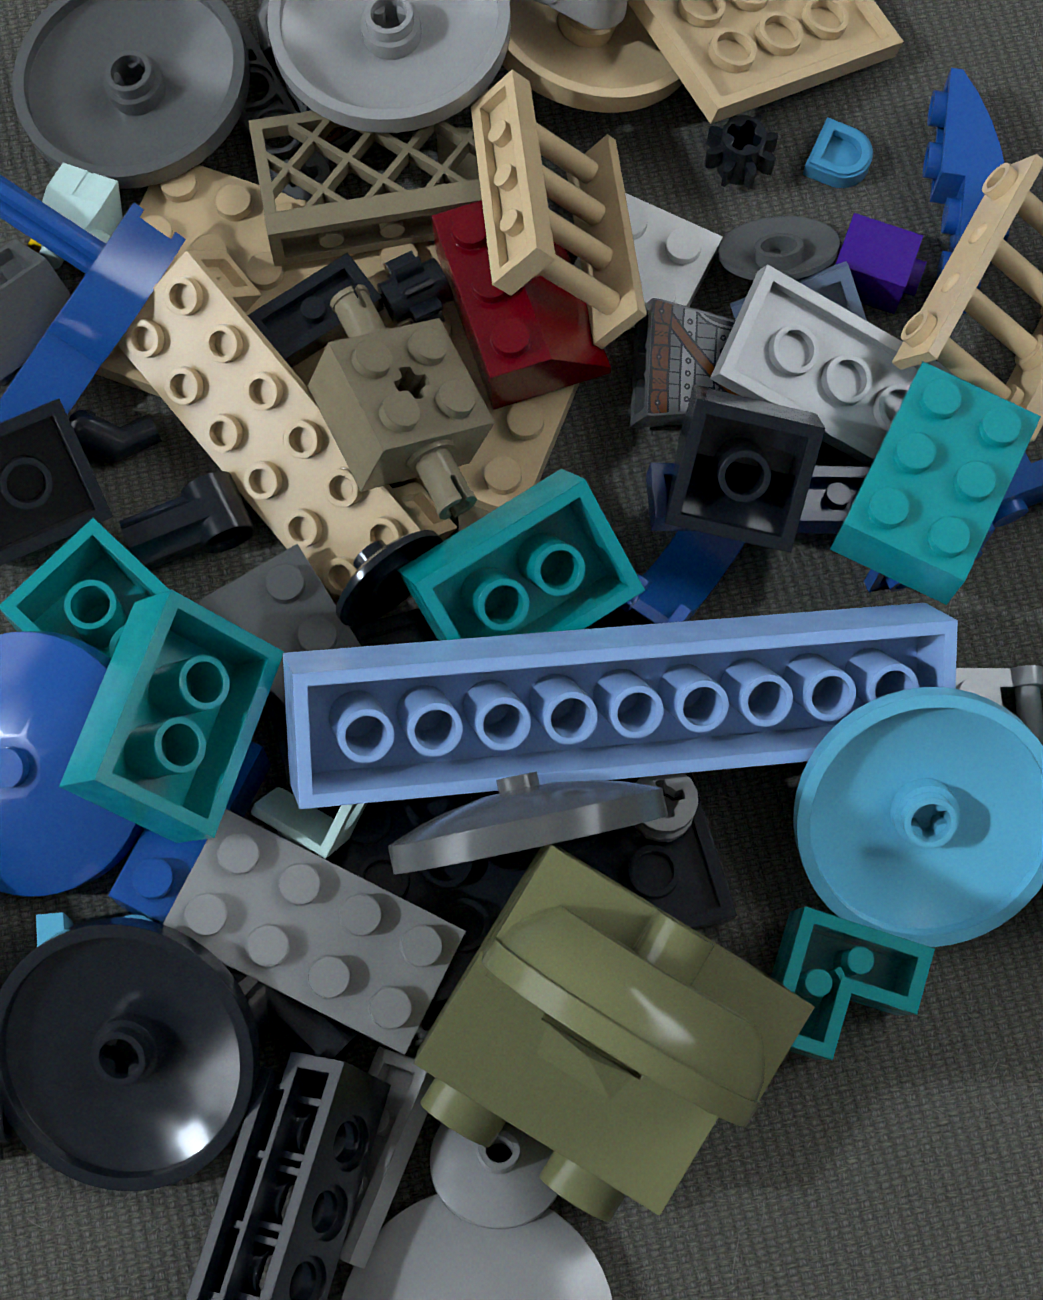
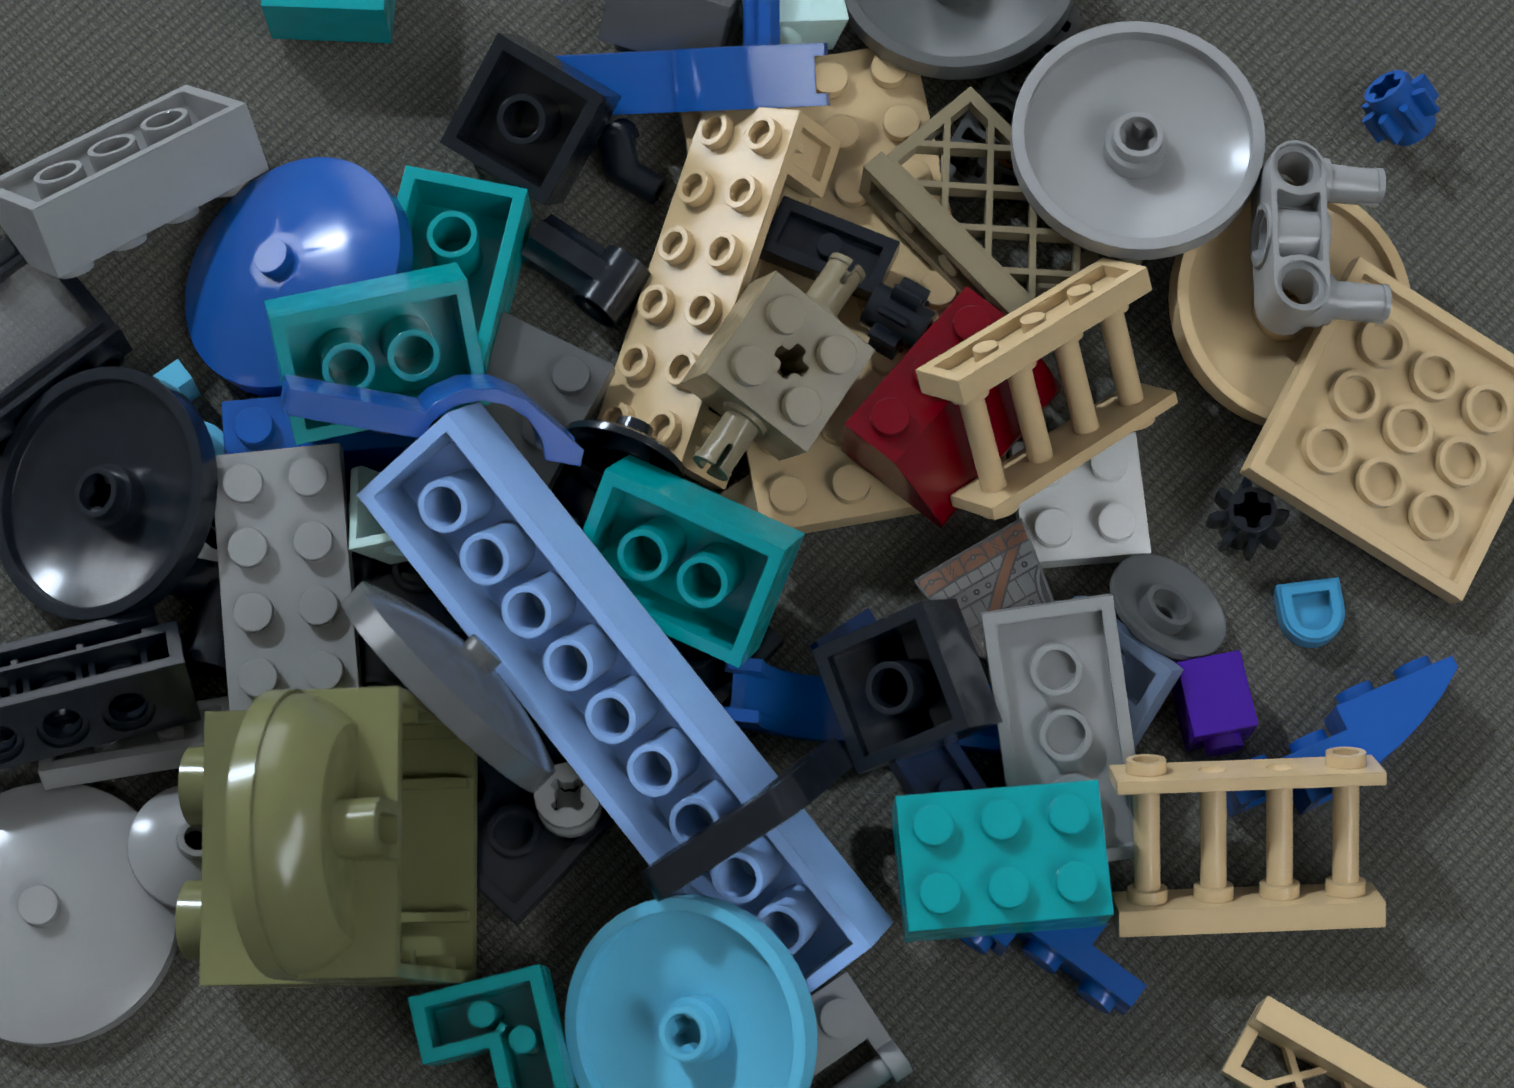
camera: 60 degrees right, 0 degrees up
(262, 705) = (414, 415): none -> blue piece
(807, 612) = (749, 821): none -> black beam

